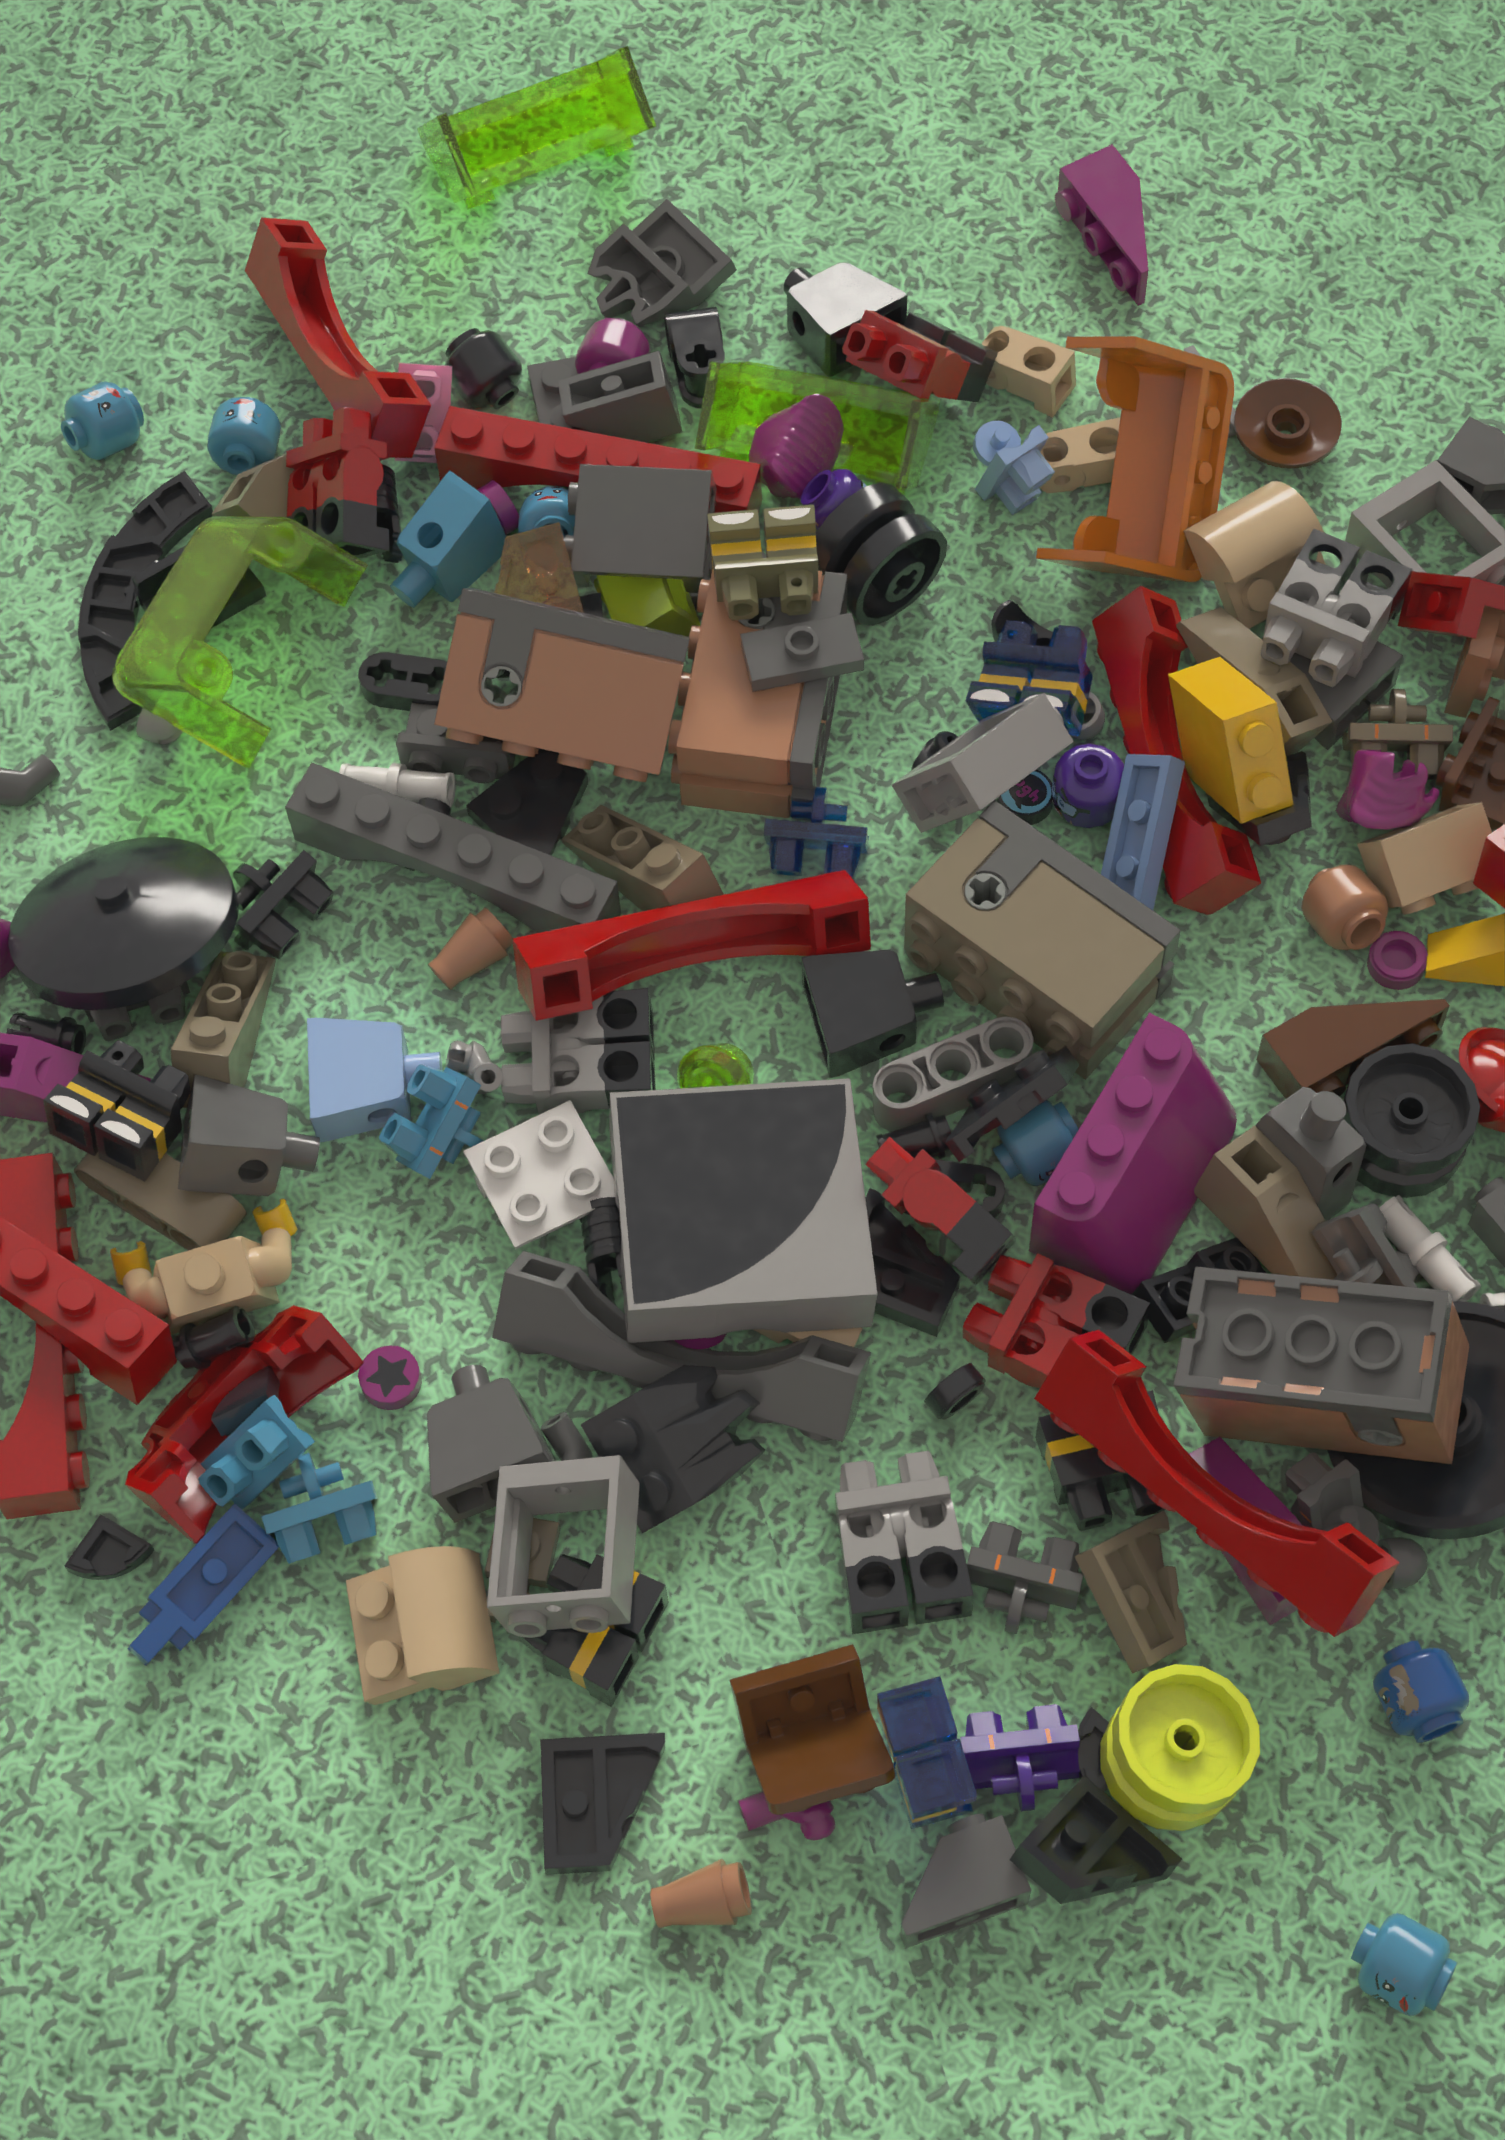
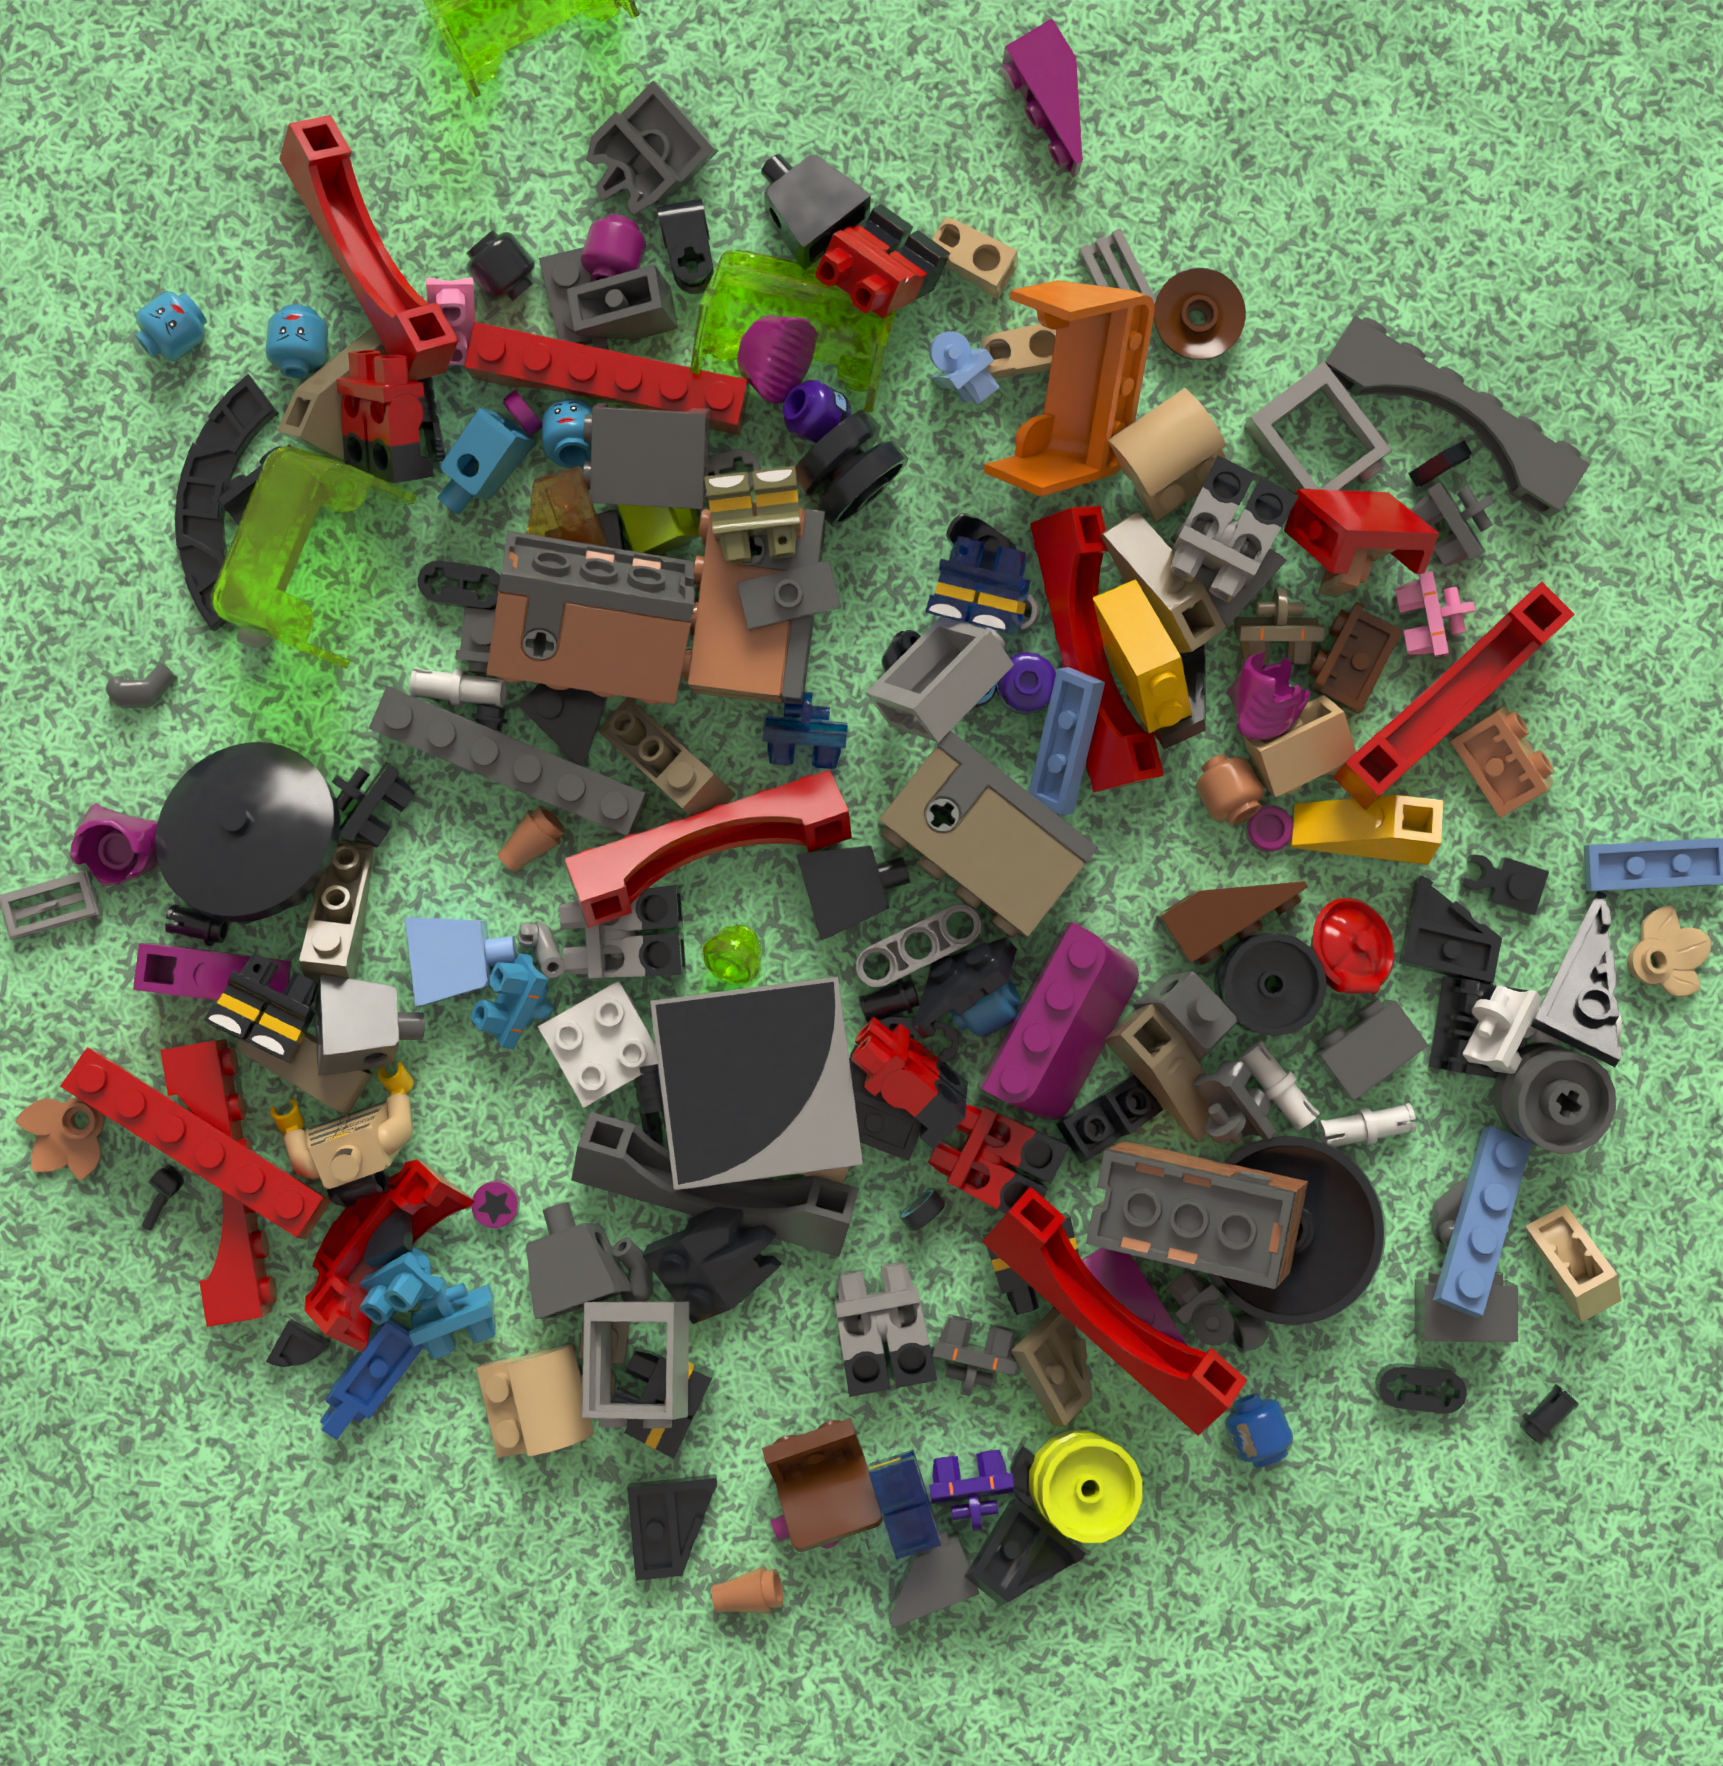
camera: 10 degrees left, 25 degrees up
(1404, 1964) = (1237, 1629): dark azure head -> none

